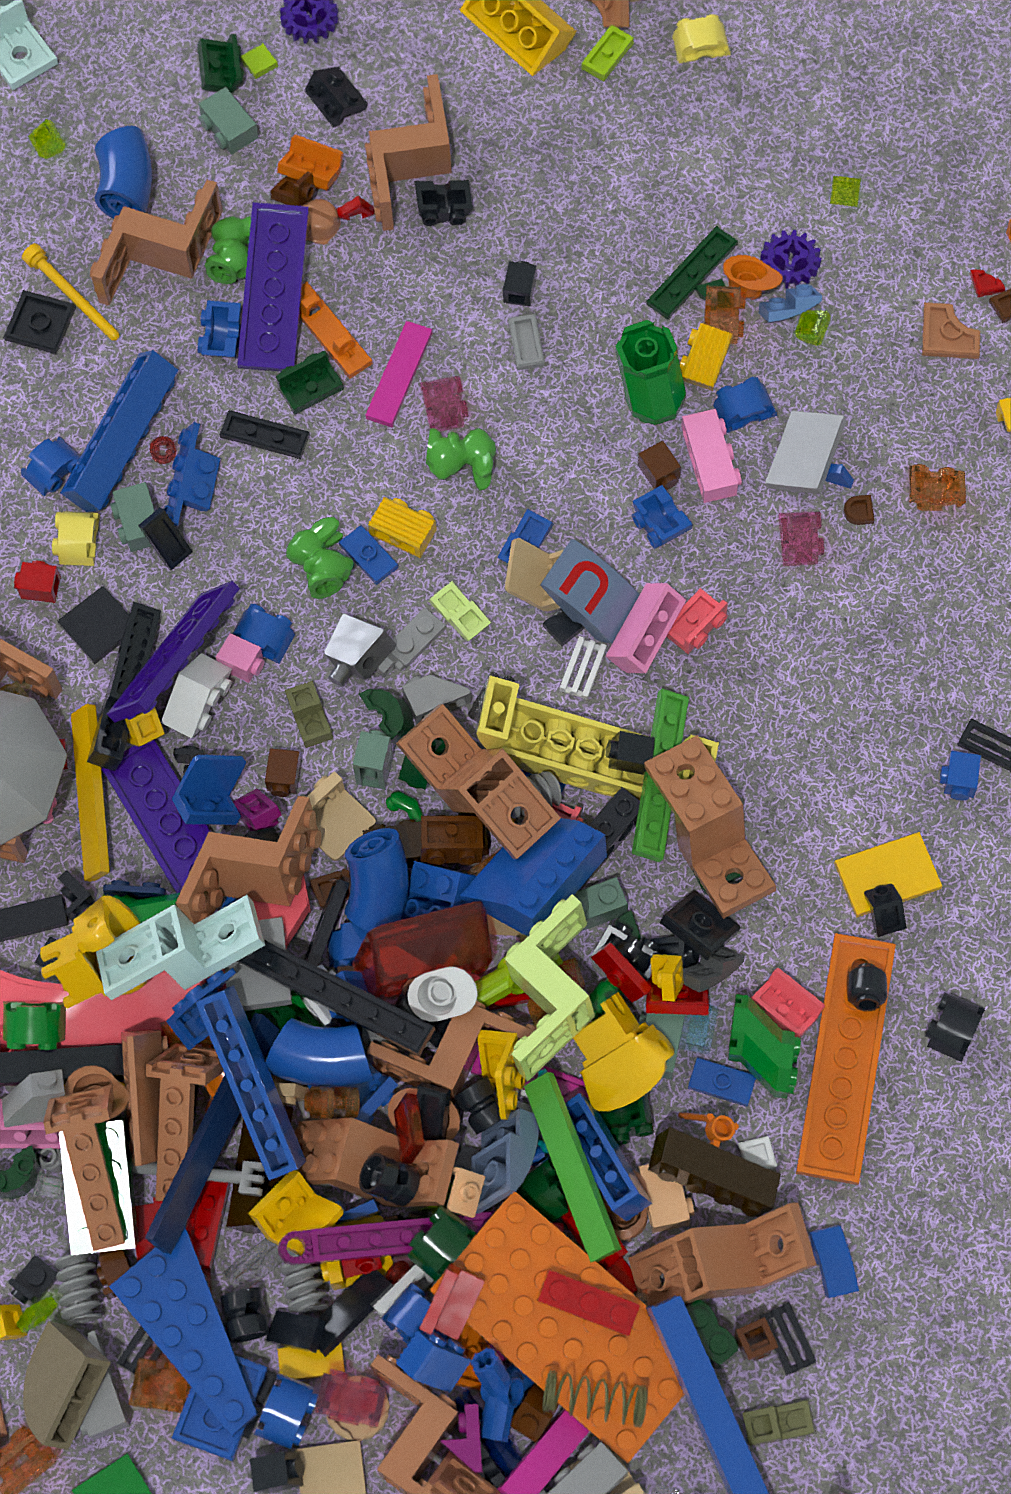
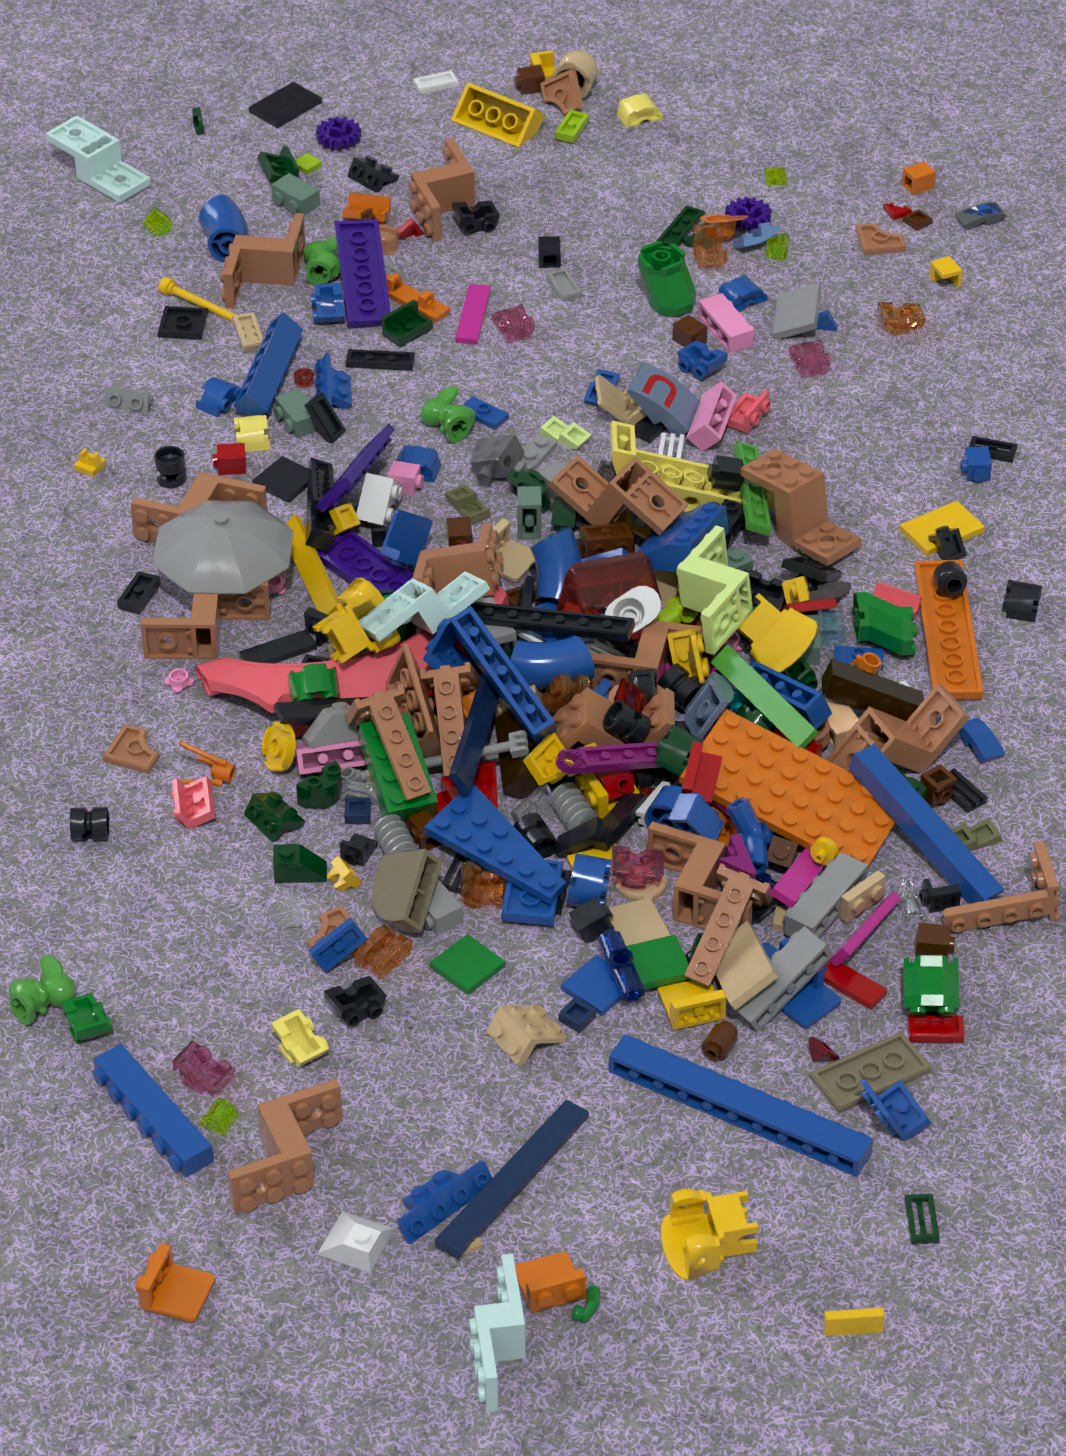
camera: 15 degrees left, 25 degrees down
(37, 1314) = (368, 861): clear neon green tile -> none
(47, 1217) = (357, 810): none -> dark blue plate
(113, 356) = (248, 331): none -> tan plate
(402, 526) = (505, 391): yellow brick -> none
(450, 454) = (528, 346): bright green animal -> none
(465, 1192) = (687, 719): light nougat bracket -> none
(551, 1398) = (797, 818): olive piece -> none
(582, 1430) = (823, 850): none -> yellow tile
(588, 1303) = (804, 767): red plate -> none
(621, 972) = (770, 593): red plate -> none
(706, 356) = (705, 268): yellow brick -> none
(859, 510) = (848, 340): reddish brown tile -> none

